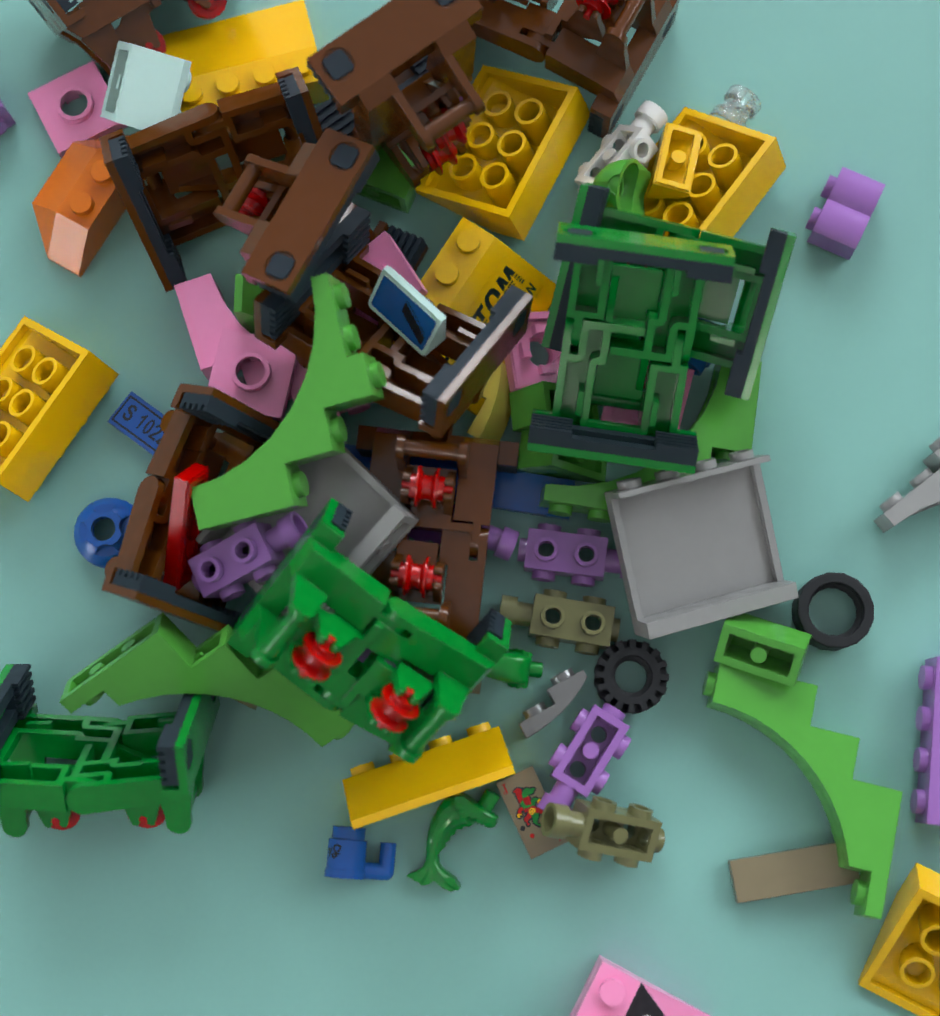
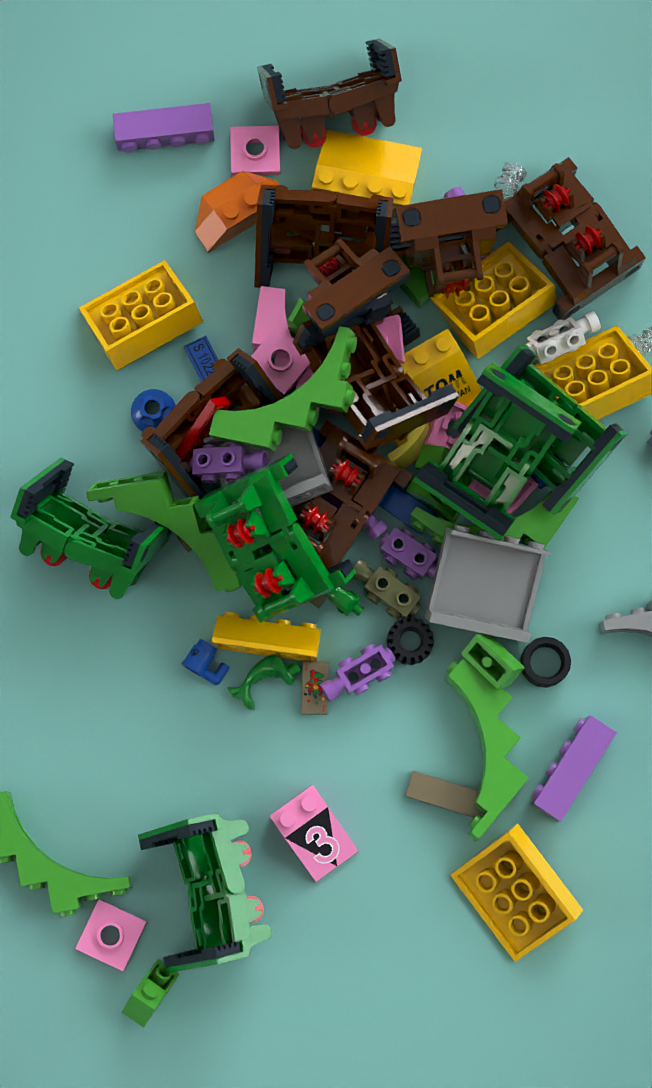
camera: 20 degrees right, 0 degrees up
(144, 86) = (301, 162): light aqua slope -> none
(408, 311) = (385, 370): slope -> none
(563, 691) = (367, 629): flat silver slope -> none
(598, 829) = (352, 717): olive brick -> none
(627, 183) = (551, 357): bright green cap -> none
(674, 162) = (590, 356): yellow slope -> none

